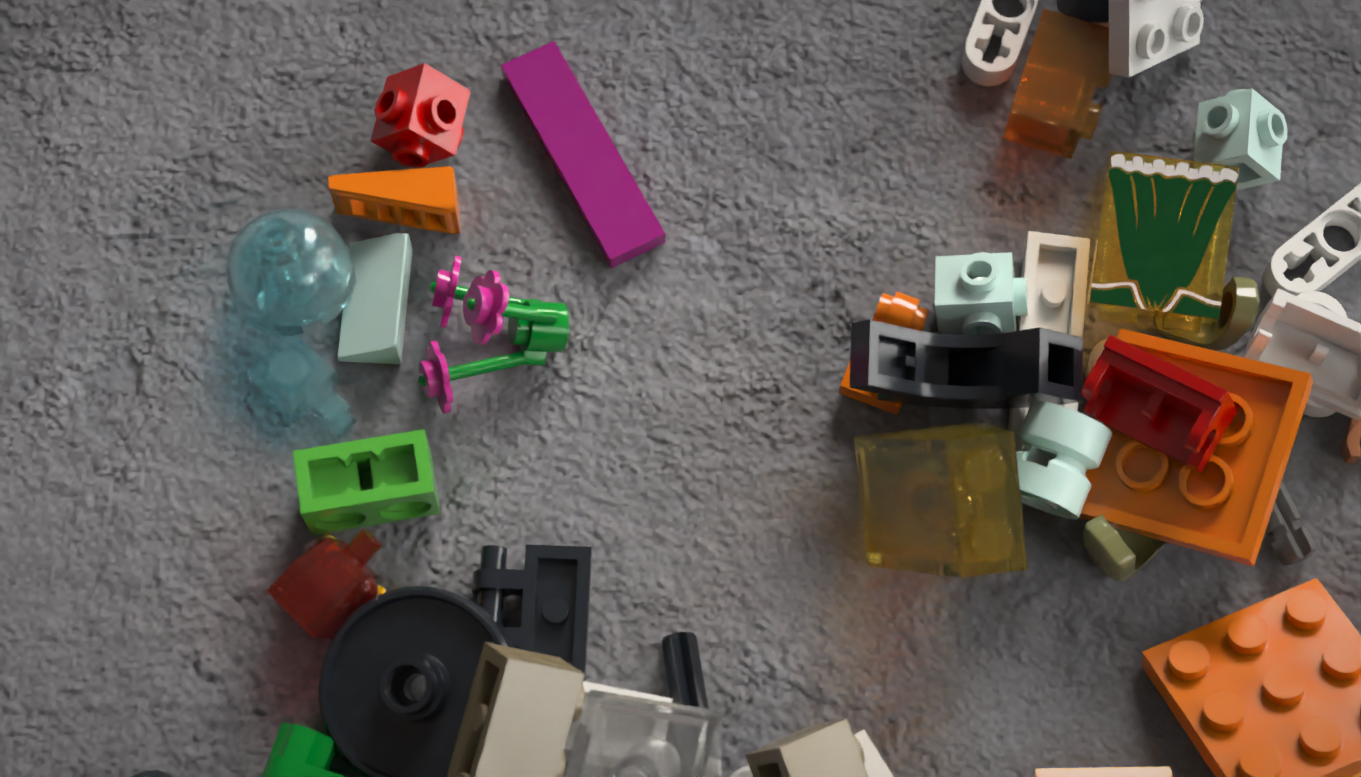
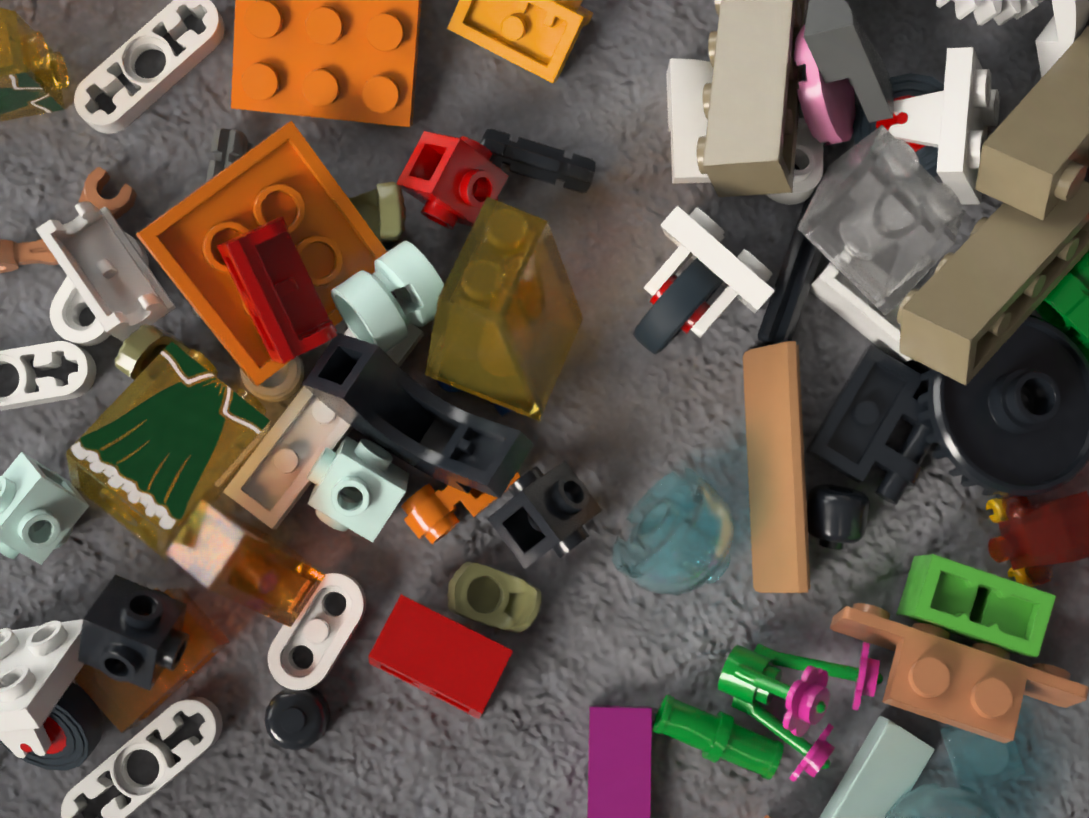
camera: 150 degrees left, 15 degrees up
(350, 405) = (955, 682): none -> nougat bracket
(533, 509) = (837, 515): none -> black piece
(544, 265) = (718, 737): none -> green pin
(611, 522) = (776, 469): none -> medium nougat slope
(668, 403) = (679, 536): none -> clear light blue cylinder
(780, 644) = (682, 300): none -> plate
(799, 362) = (545, 514): none -> black brick
(802, 278) = (493, 598): none -> olive hair
(819, 201) = (439, 656): none -> red hinge
(907, 105) = (297, 718): none -> black piece
(935, 180) = (319, 631): none -> white plate
(1003, 688) = (539, 161): none -> black axle
(1031, 179) = (245, 564): none -> clear orange brick
(1069, 612) = (451, 178): none -> red brick
(1084, 70) = (133, 633): none -> black brick

